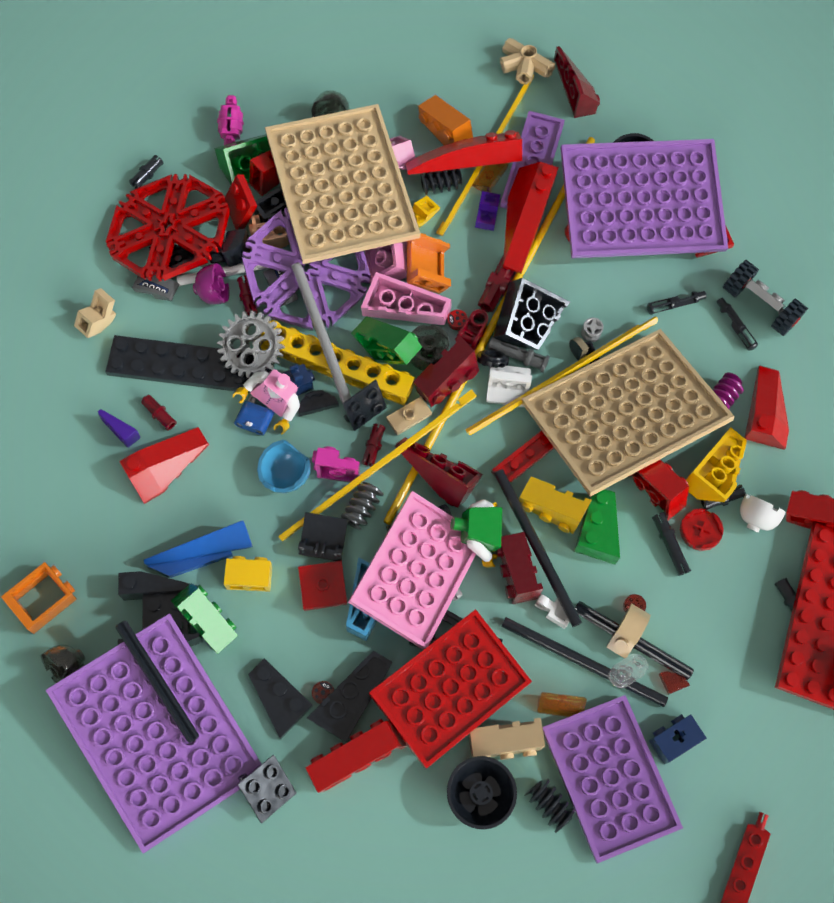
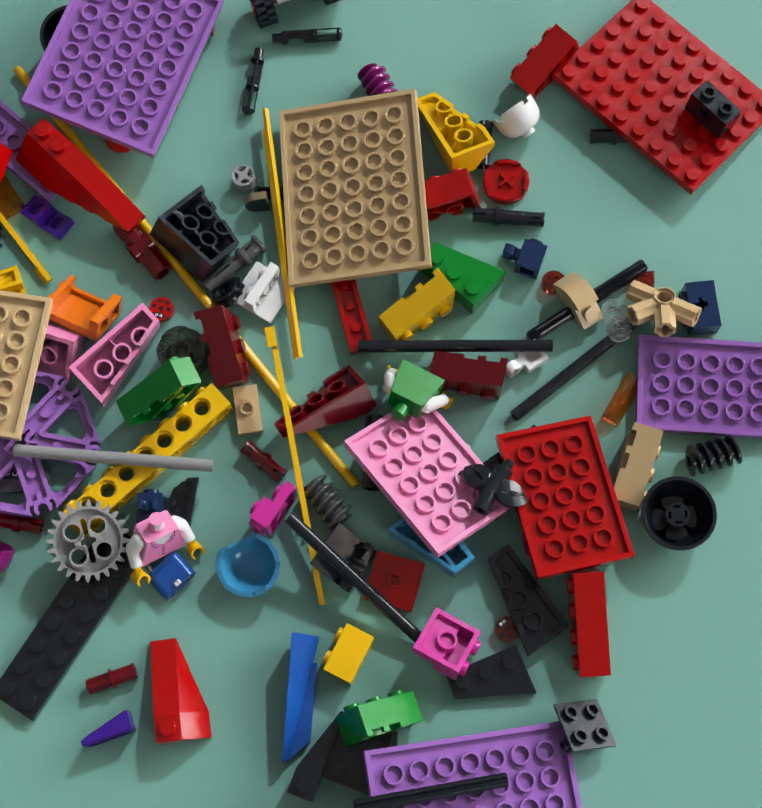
camera: 60 degrees left, 5 degrees up
(287, 647) = (447, 643): none -> dark pink plate
(304, 560) = (353, 577): none -> black piece
(364, 405) = (218, 450): black hinge -> none
(429, 624) = (494, 485): none -> black plant
(471, 331) = (185, 300): dark red piece -> none
(644, 574) = (528, 258): none -> dark blue brick
(655, 701) = (661, 306): none -> tan piece
(767, 412) = (416, 58): red wedge -> none

